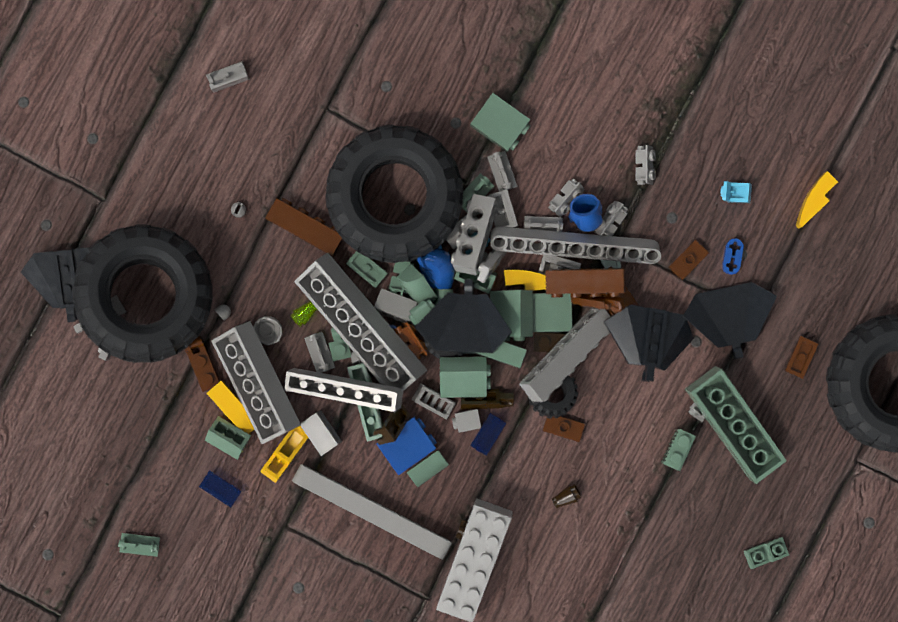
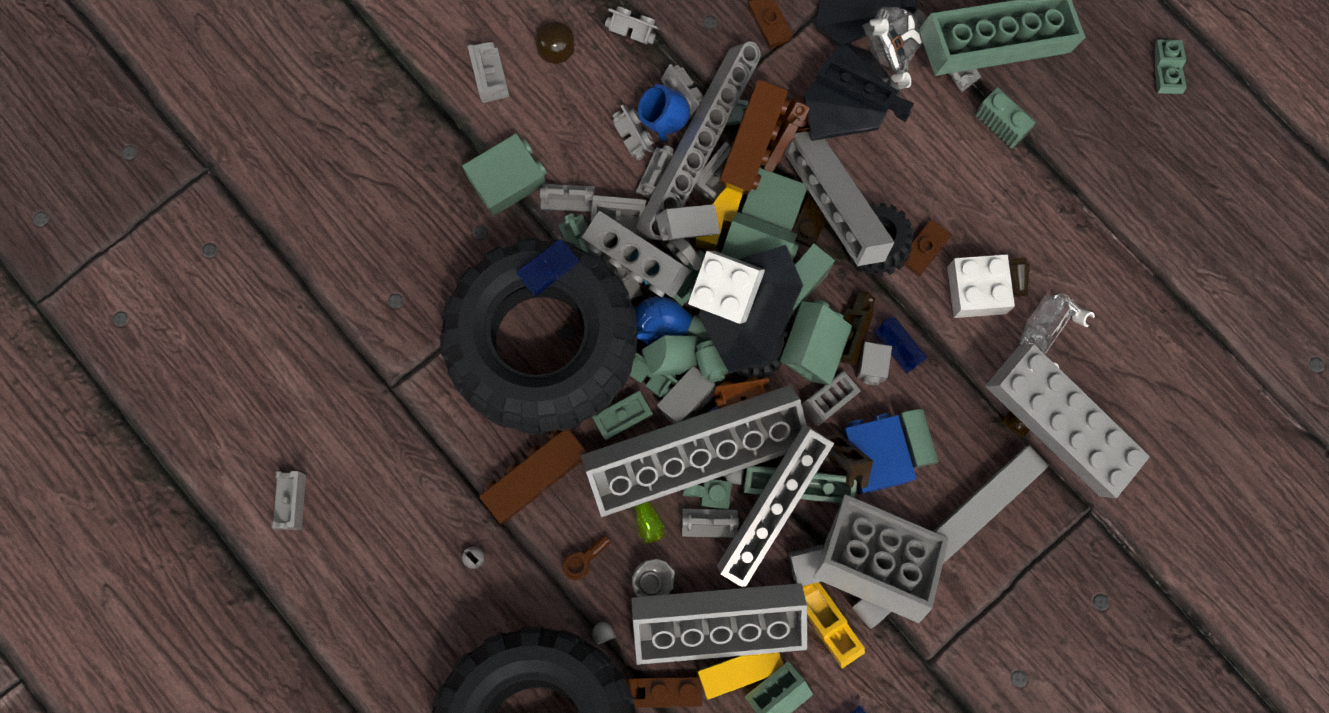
camera: 75 degrees left, 10 degrees down
(259, 278) = (576, 564): none -> reddish brown plate
(336, 470) = (882, 559): none -> light grey slope
(433, 183) = (547, 267): none -> clear blue plate
(470, 303) = (726, 286): none -> white brick
(507, 261) = (688, 222): none -> light grey hinge
(539, 527) = (1050, 319): none -> clear torso
(548, 473) = (980, 286): none -> white brick
(570, 80) = (488, 72): none -> light grey hinge
(611, 117) = (555, 42): none -> dark brown hair
(702, 353) = (895, 40): none -> torso

